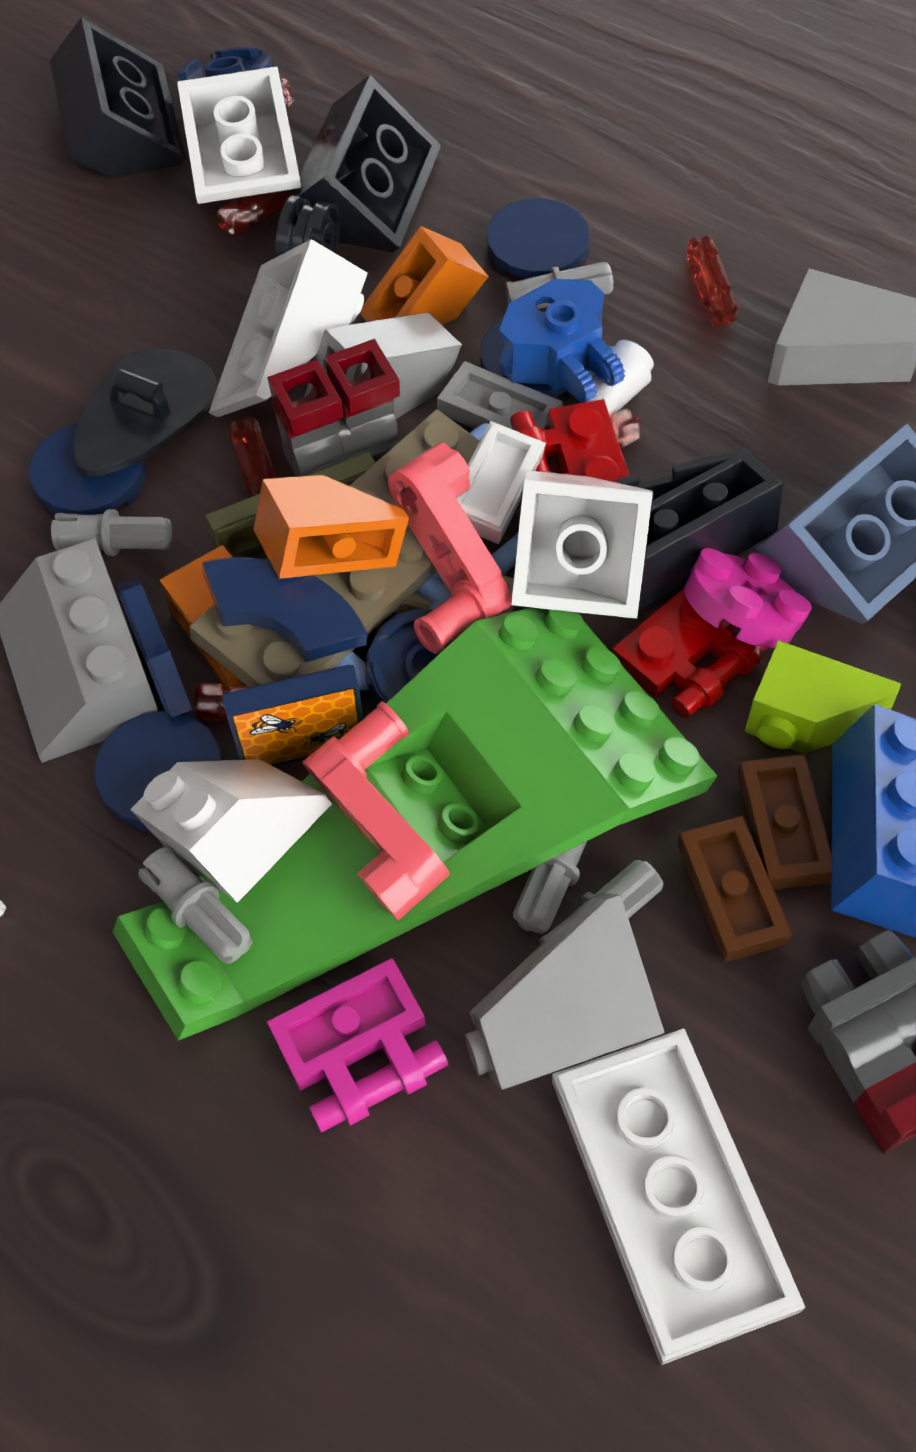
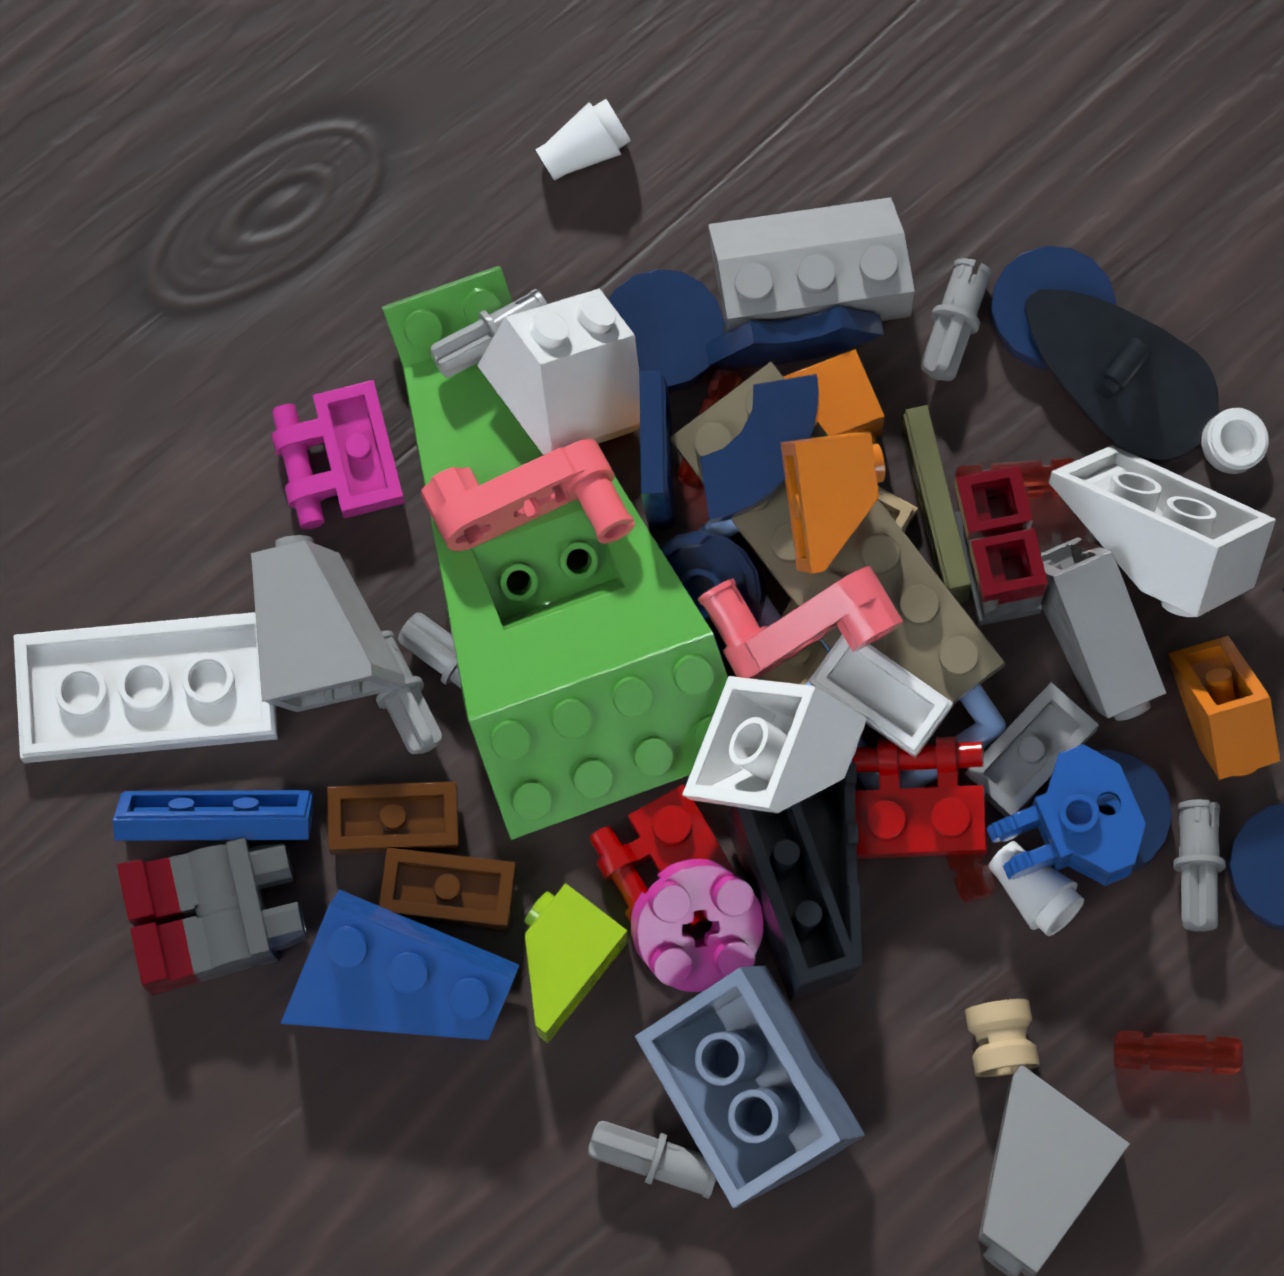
camera: 105 degrees right, 15 degrees up
(189, 330) = (1234, 440): none -> white tile
(750, 378) = (1001, 1036): none -> tan wheel
(799, 1066) = (214, 815): none -> blue tile

